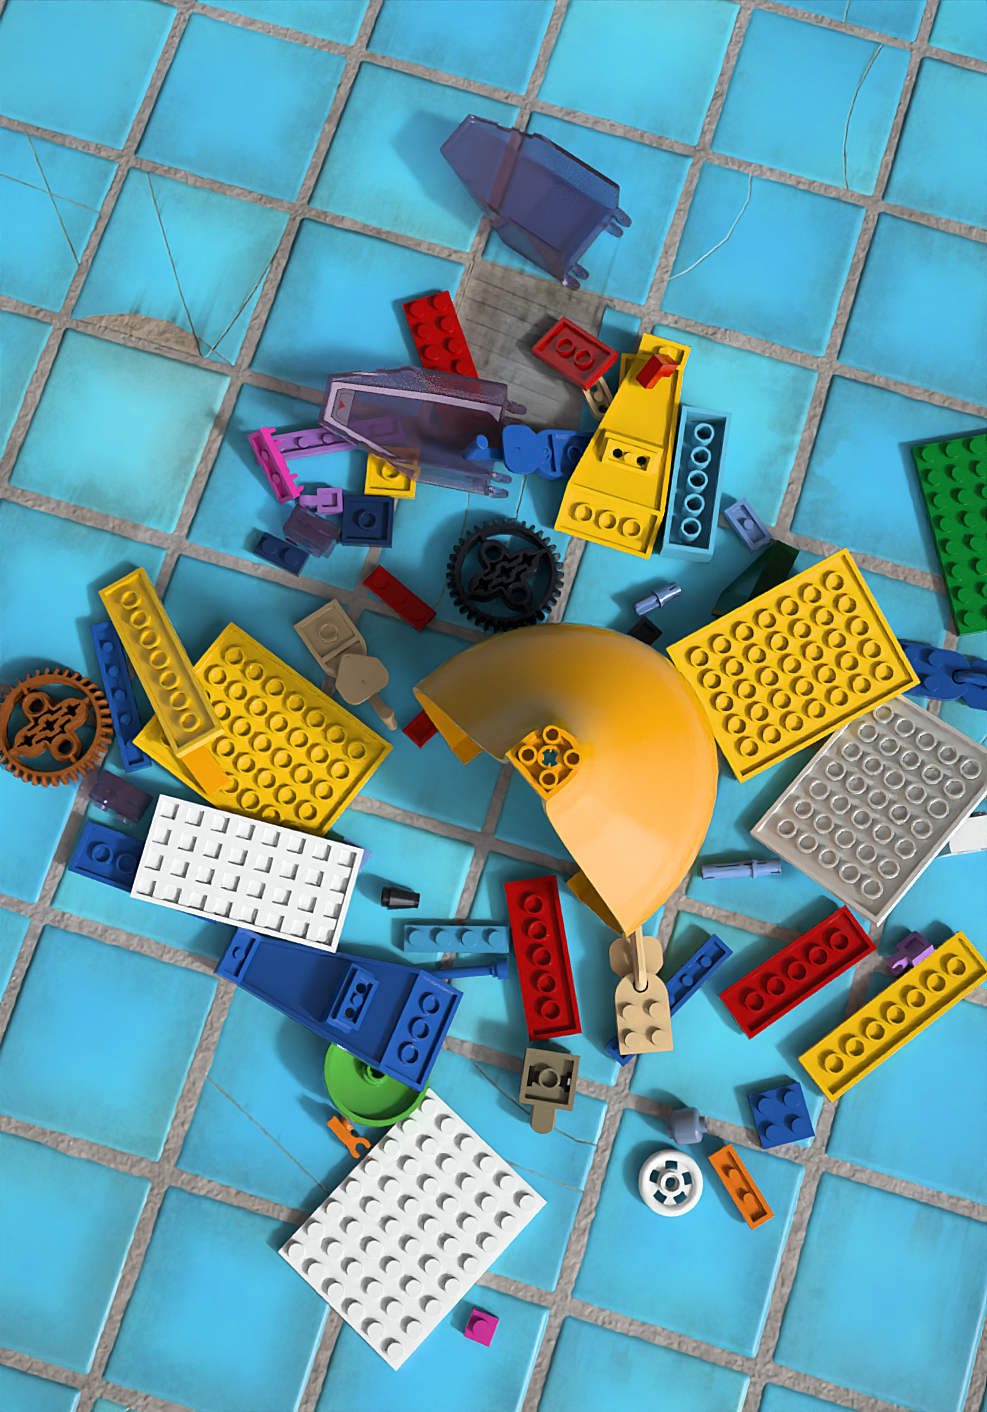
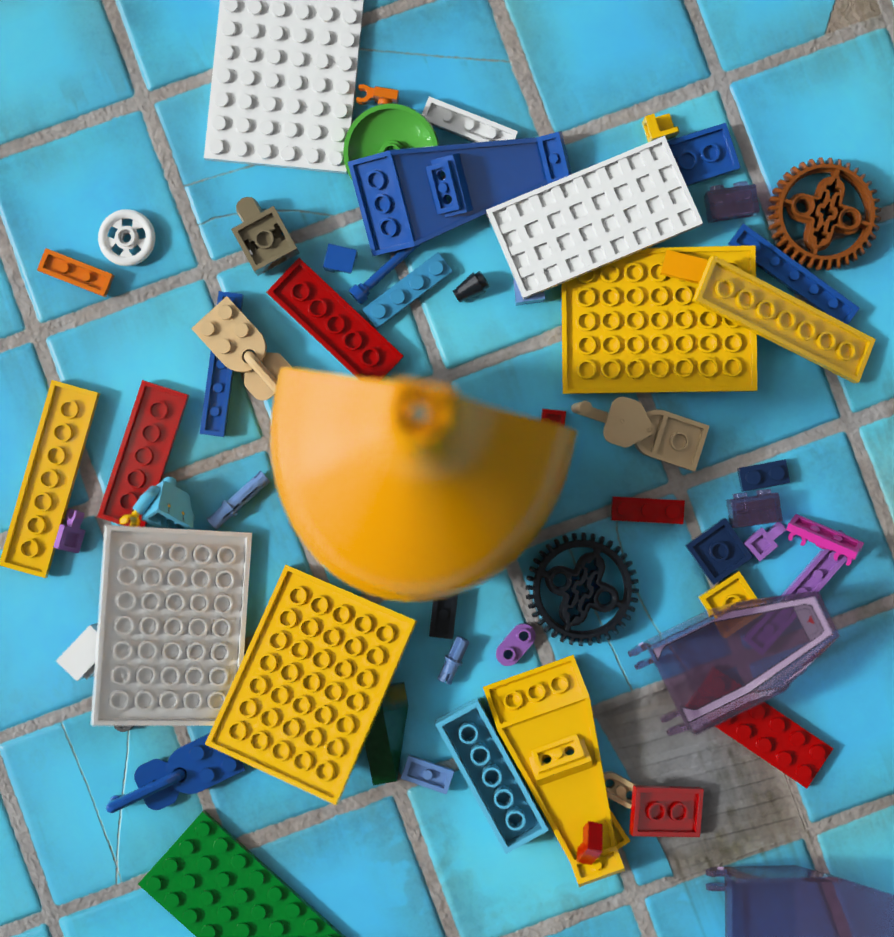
camera: 145 degrees right, 10 degrees up
(127, 911) = (659, 126): none -> yellow panel
(290, 1048) = (465, 123): none -> white plate
(481, 1327) = (186, 42): dark pink plate -> none
(494, 1010) = (339, 259): none -> blue panel
(549, 453) = (622, 709): blue plate -> none
(595, 574) = (515, 644): none -> medium lavender plate
(686, 1126) = (143, 284): sand blue head -> none
(780, 1115) = (82, 344): blue plate -> none
(813, 909) = (163, 507): none -> medium azure torso

